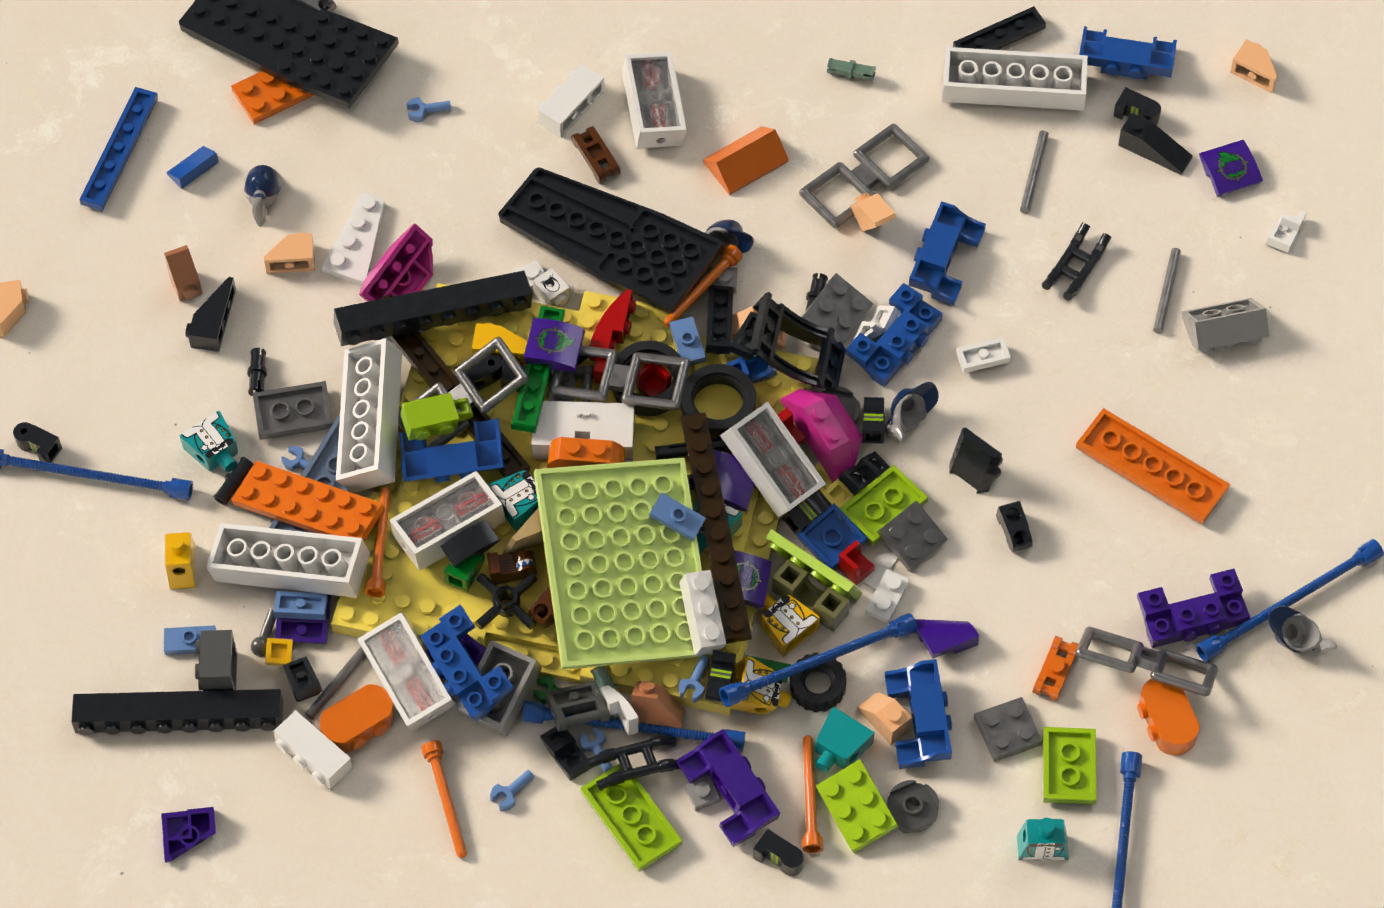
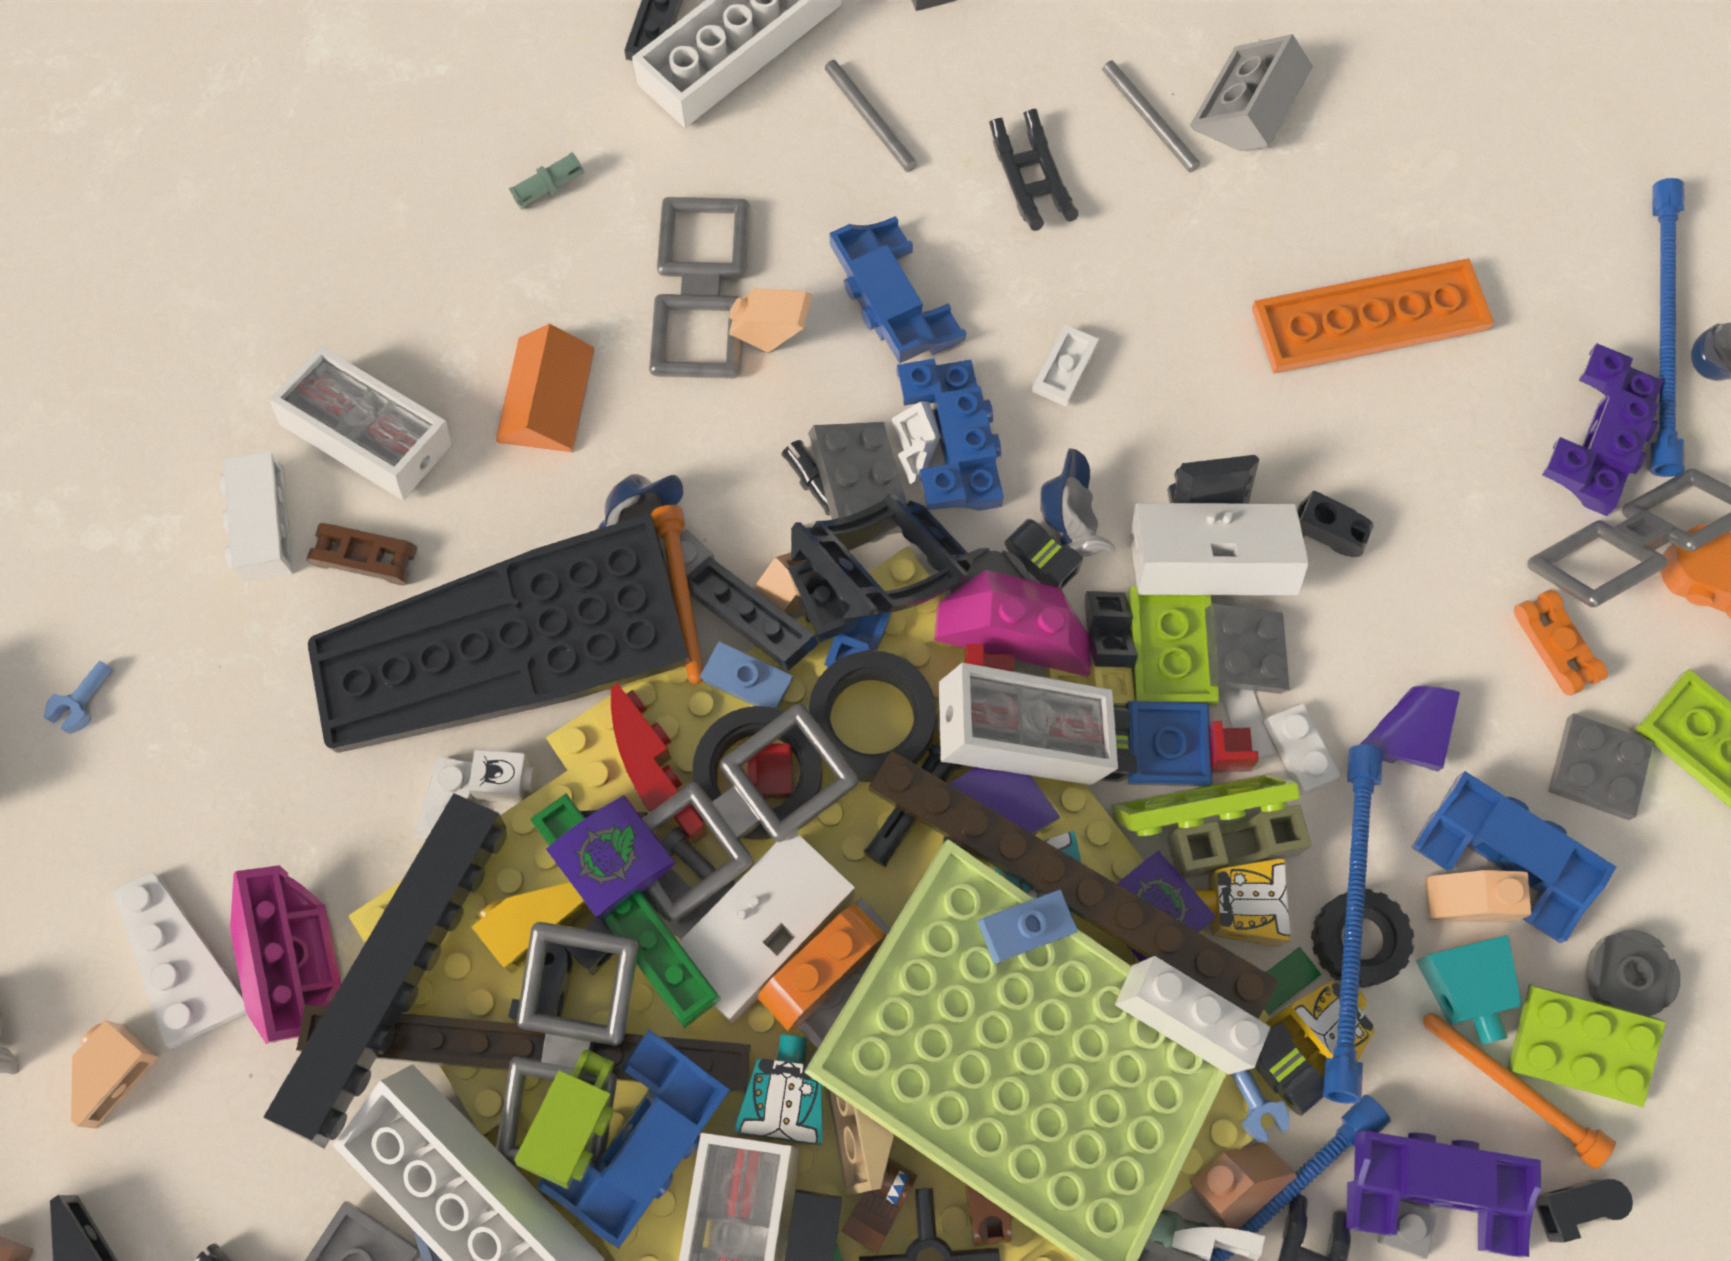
camera: 50 degrees left, 10 degrees up
(947, 483) = (1217, 549): none -> white brick

